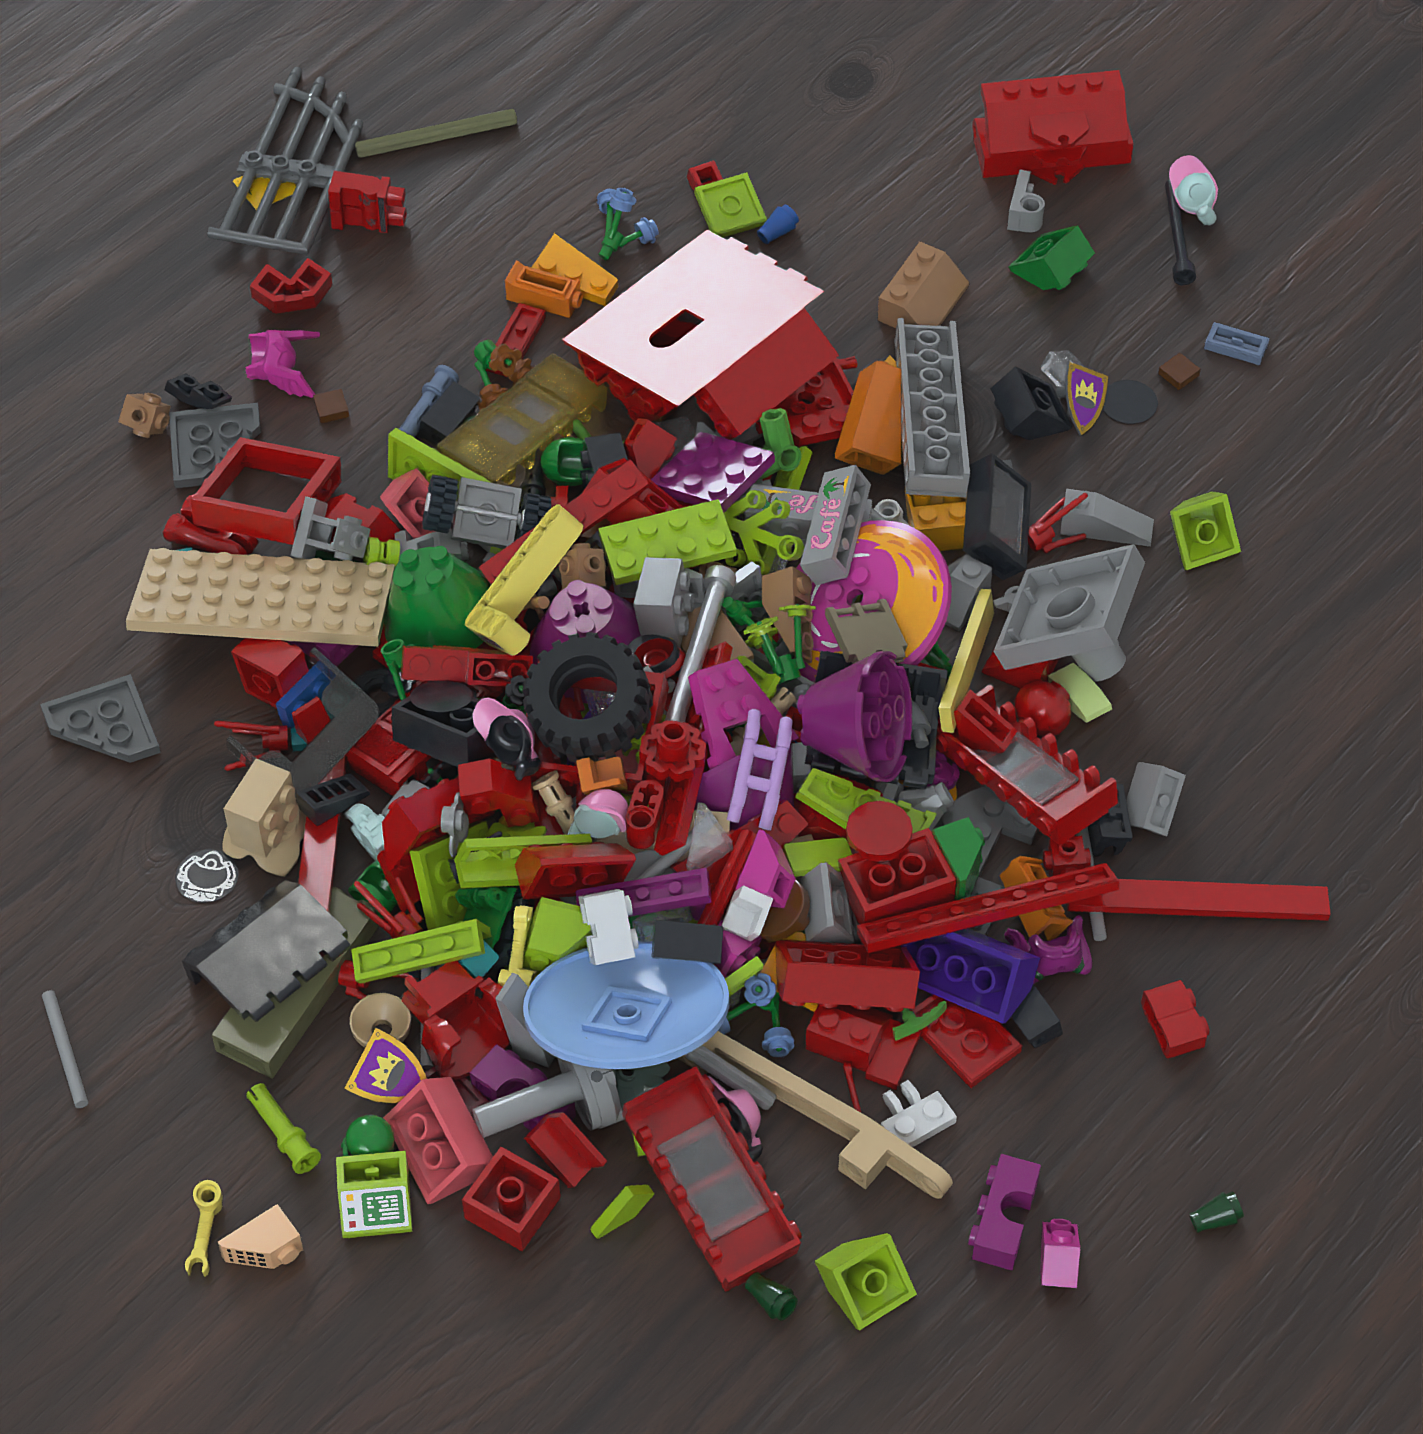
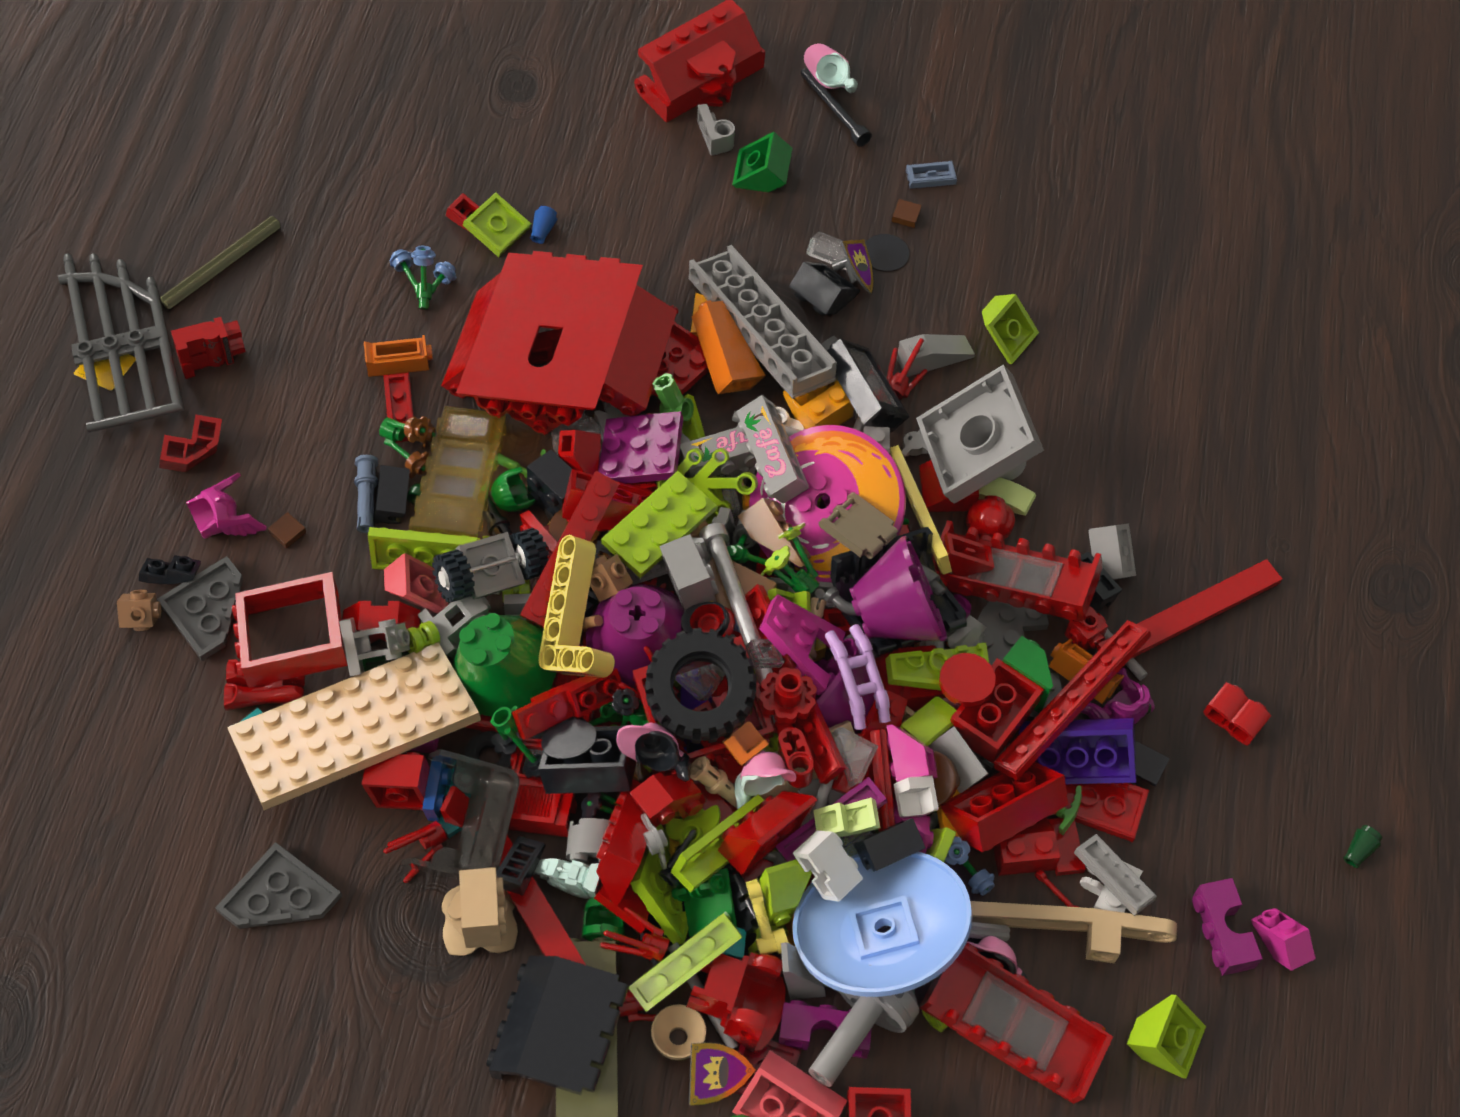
camera: 35 degrees left, 5 degrees up
(206, 876) = (449, 982): black sticker -> none
(564, 1148) = (891, 1058): red panel -> none
(566, 261) = (399, 325): light orange wing -> none
(622, 1209) = (960, 1083): lime tile -> none
(657, 896) = (849, 818): none -> yellowish green slope
(680, 706) = (764, 654): none -> clear tile
(773, 1297) = (1112, 1088): dark green cone -> none
(917, 1099) = (1115, 874): none -> light grey plate
(922, 289) = (687, 230): medium nougat slope -> none

